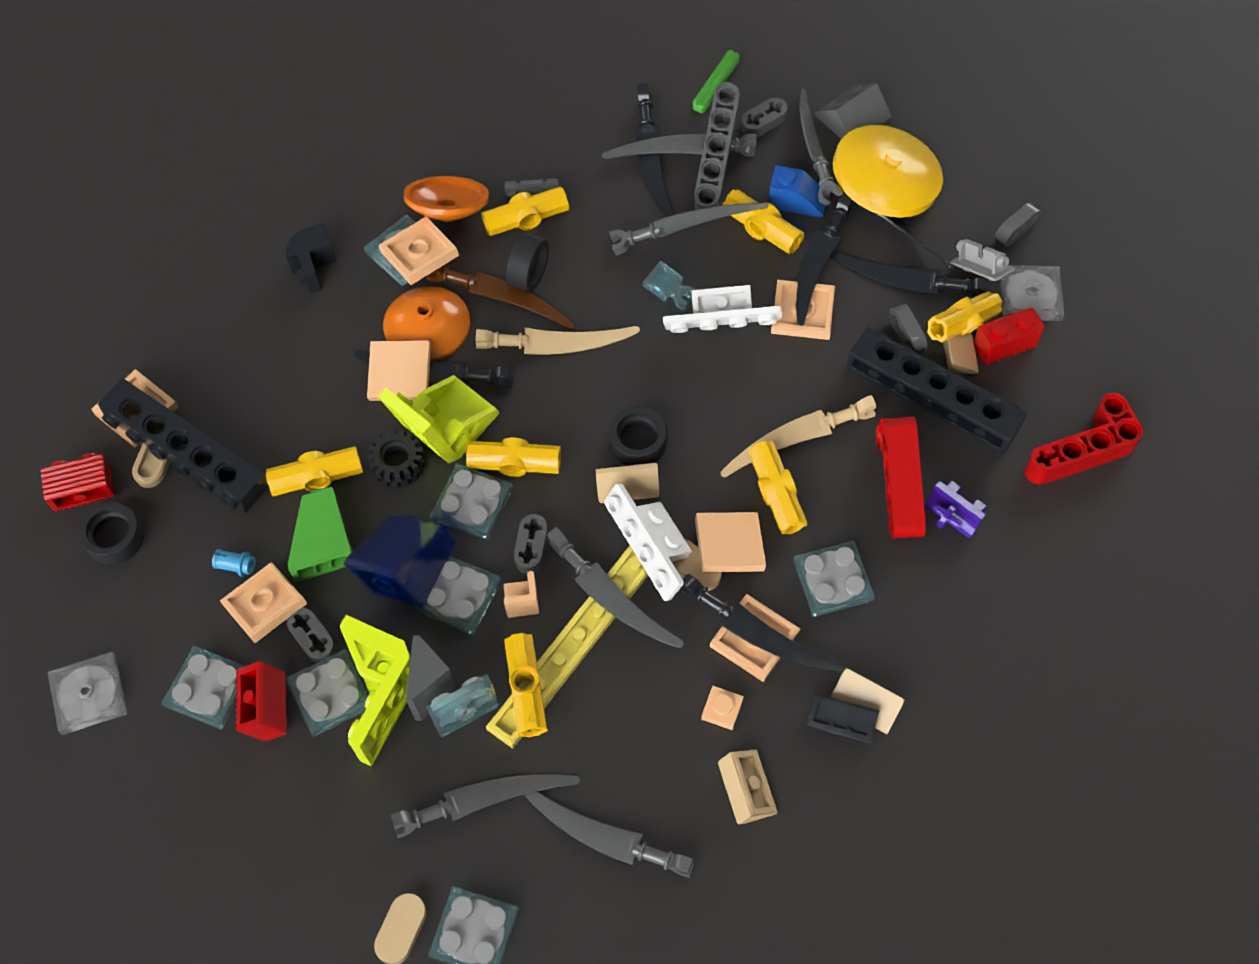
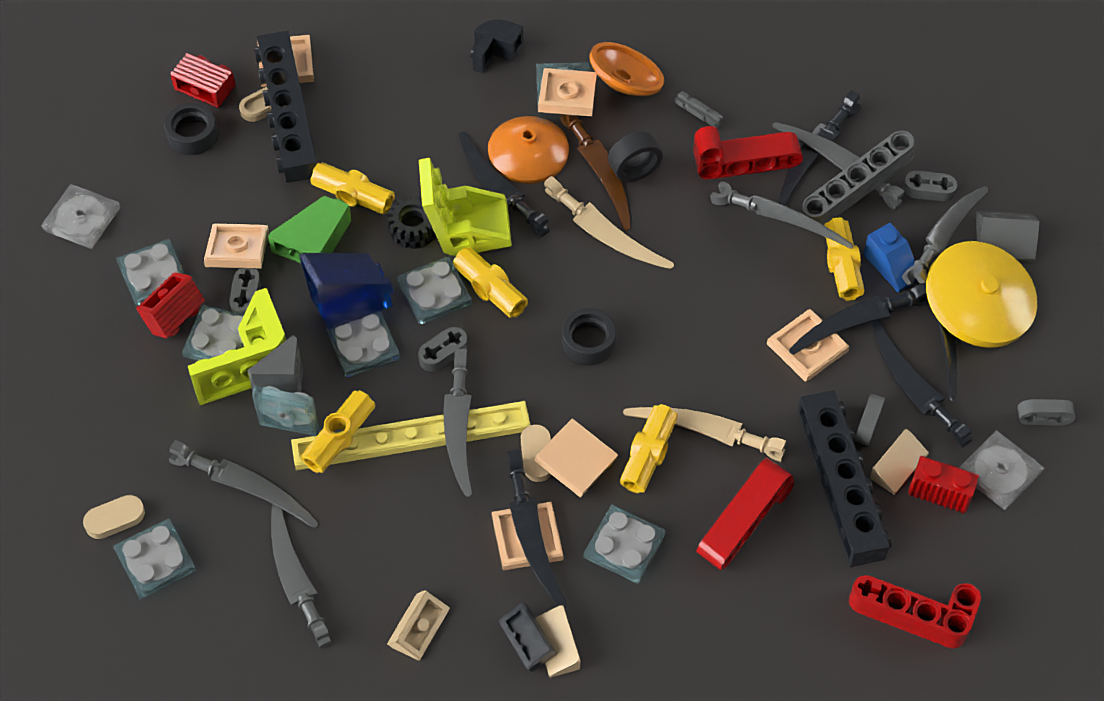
camera: 40 degrees right, 5 degrees down
(235, 562) = (248, 210): dark azure pin -> none
(398, 367) = (474, 163): light nougat tile -> none
(521, 597) = (399, 378): light nougat panel -> none
(525, 211) = (671, 121): yellow piece -> none
(593, 211) = (744, 155): none -> red beam
(639, 480) = (549, 361): tan slope -> none
(651, 537) = (524, 409): white bracket -> none
(667, 283) = (723, 248): clear light blue plate -> none
(718, 77) = (932, 129): bright green axle -> none
(722, 307) = (742, 293): white bracket -> none
(722, 707) = (455, 561): light nougat plate -> none
(954, 509) = (760, 572): dark purple hips -> none
(964, 316) = (919, 440): yellow piece -> none
(990, 265) = (981, 415): light grey hinge -> none

